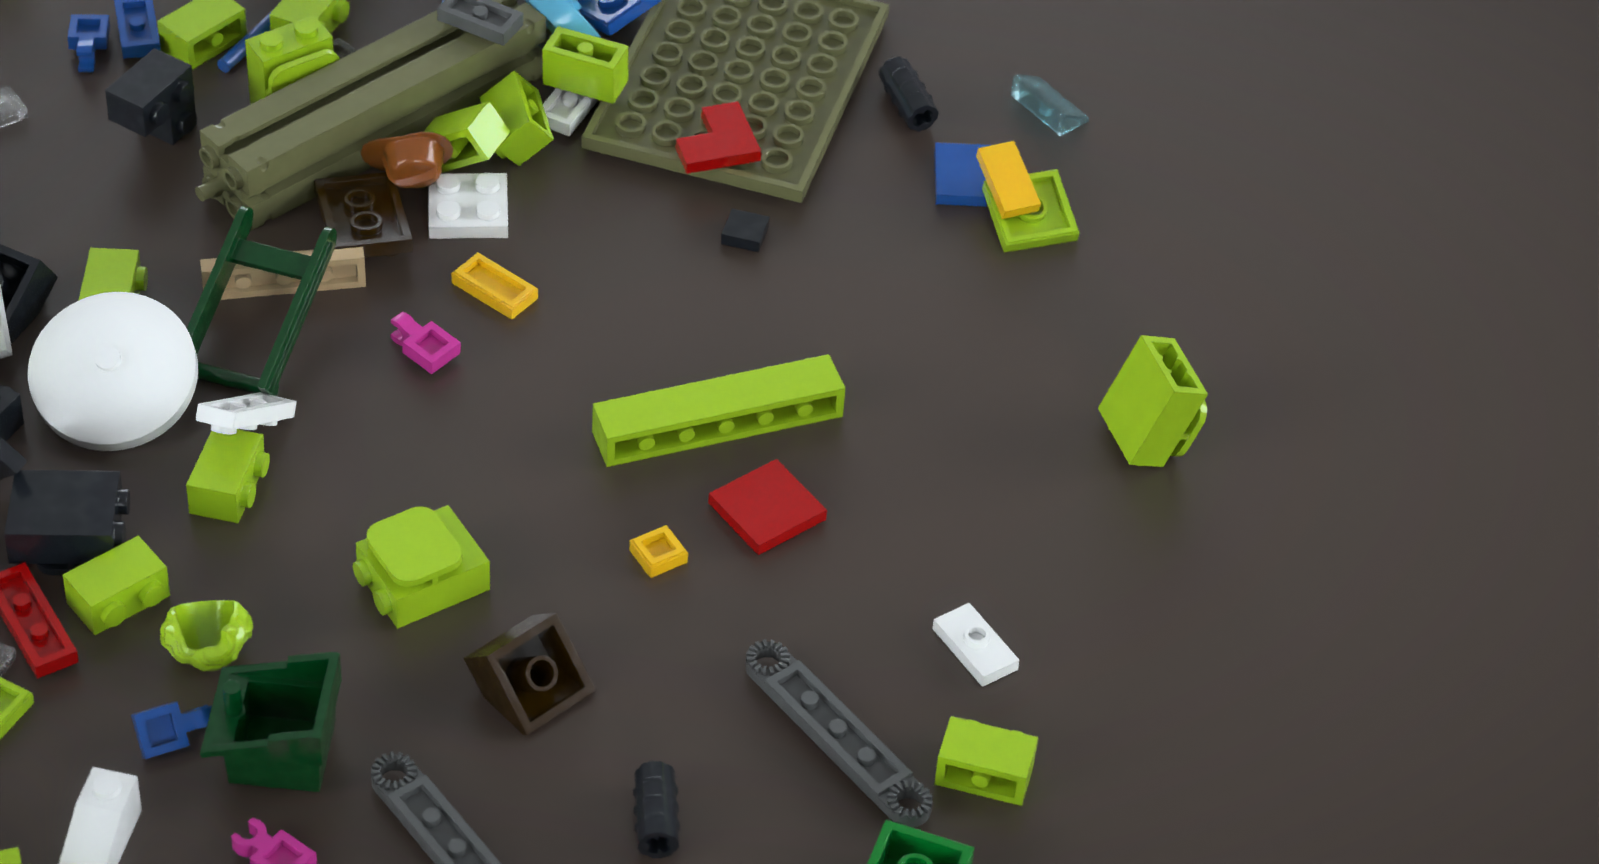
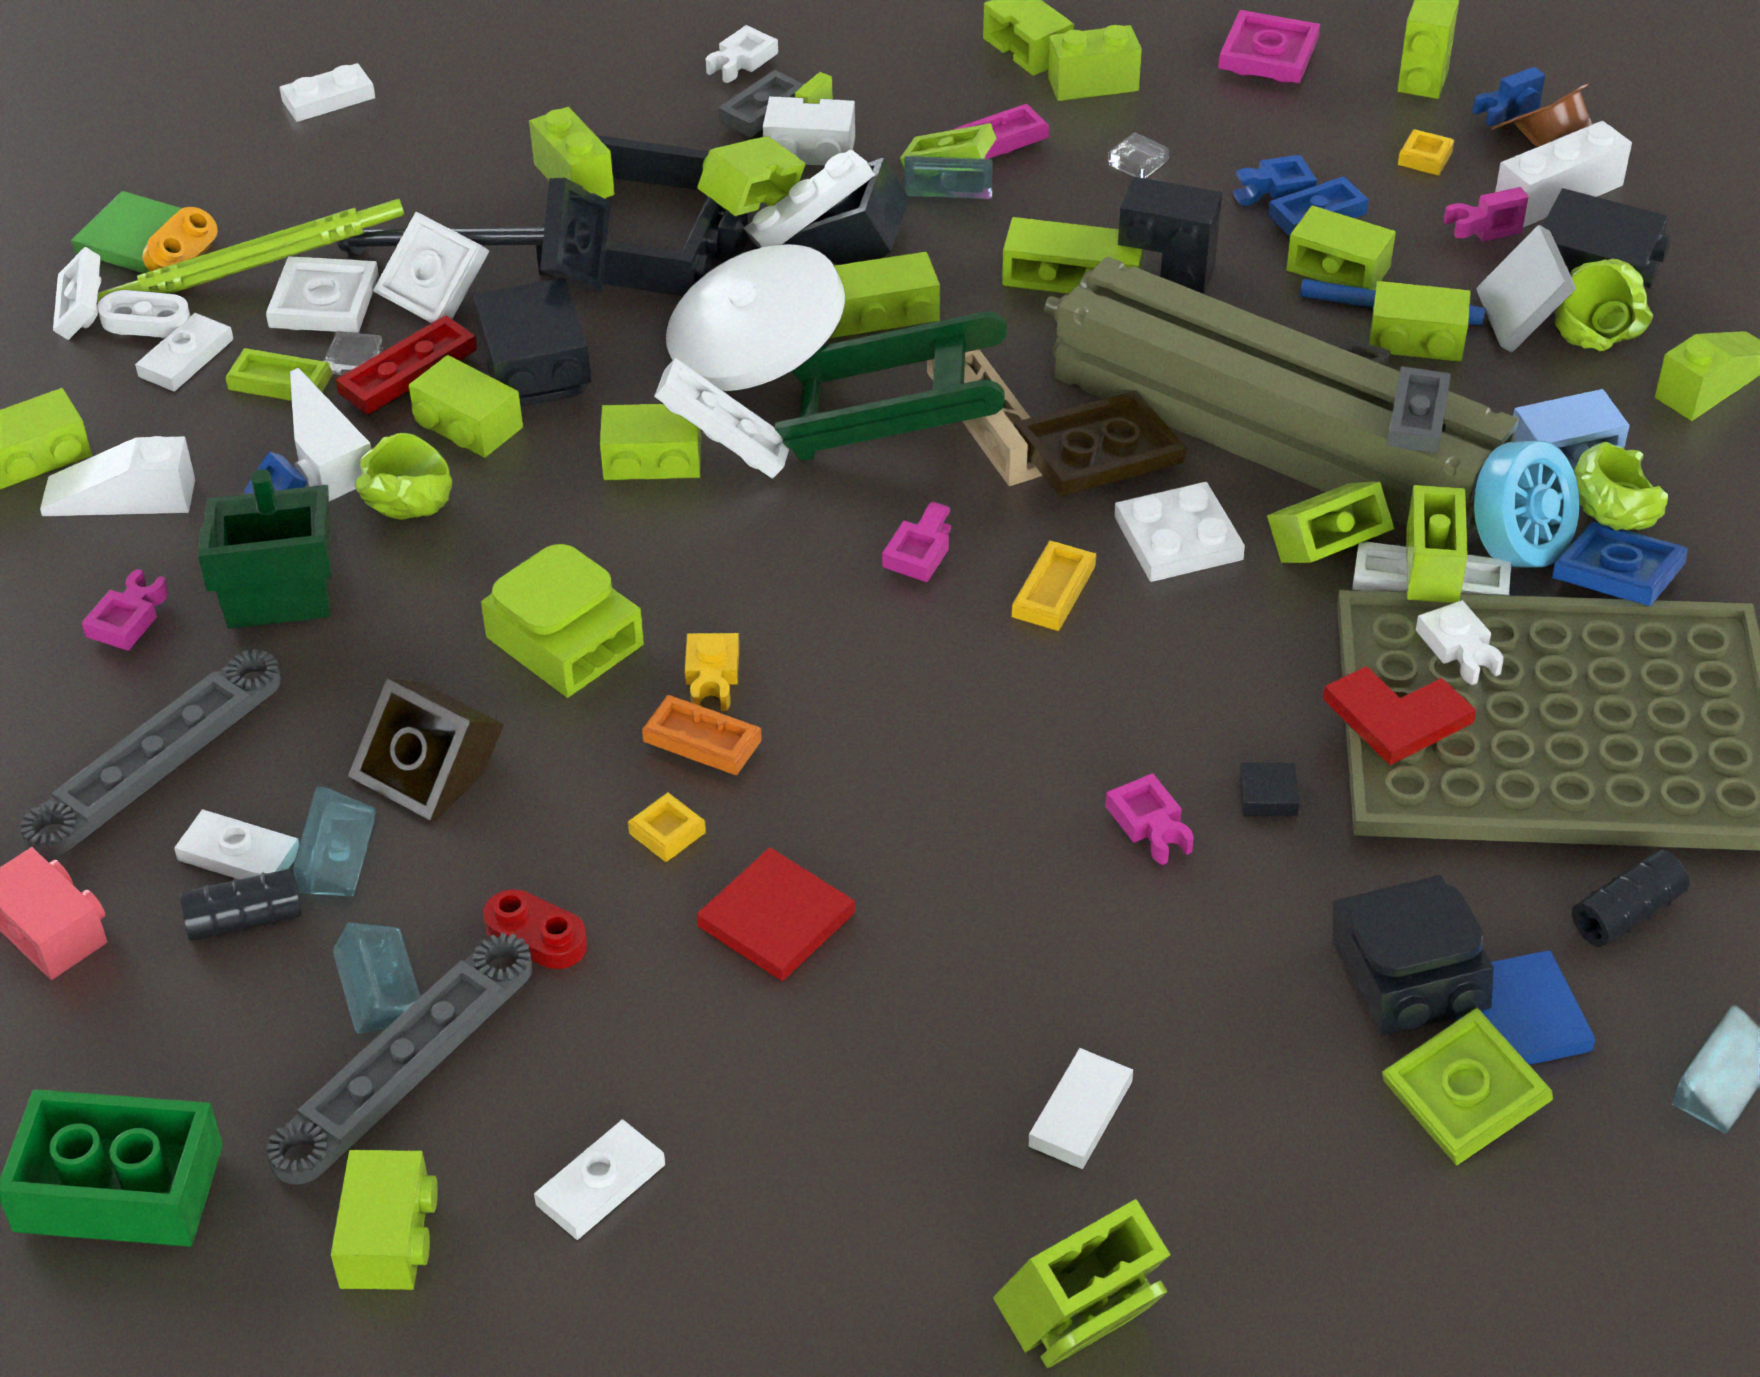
camera: 80 degrees right, 0 degrees up
(104, 688) = (324, 439): none -> white slope
(126, 177) = (1059, 254): none -> lime brick
(287, 56) = (1280, 290): lime brick -> none
(409, 159) = (1190, 451): dark orange piece -> none
(472, 132) = (1259, 479): lime brick -> none
(498, 491) = (712, 666): none -> yellow plate
(577, 509) = (702, 735): none -> orange plate
(585, 812) = (235, 847): none -> white plate
(602, 750) = (333, 844): none -> clear light blue slope
(659, 92) = (1459, 634): none -> white plate
(717, 410) = (917, 827): lime brick -> none
(735, 638) = (534, 921): none -> red plate
(749, 745) = (374, 975): none -> clear light blue slope
(751, 292) = (1150, 812): none -> dark pink plate
(929, 194) = (1413, 953): none -> black brick
(988, 391) = (1080, 1108): none -> white tile
(1008, 179) = (1483, 1029): yellow tile -> none

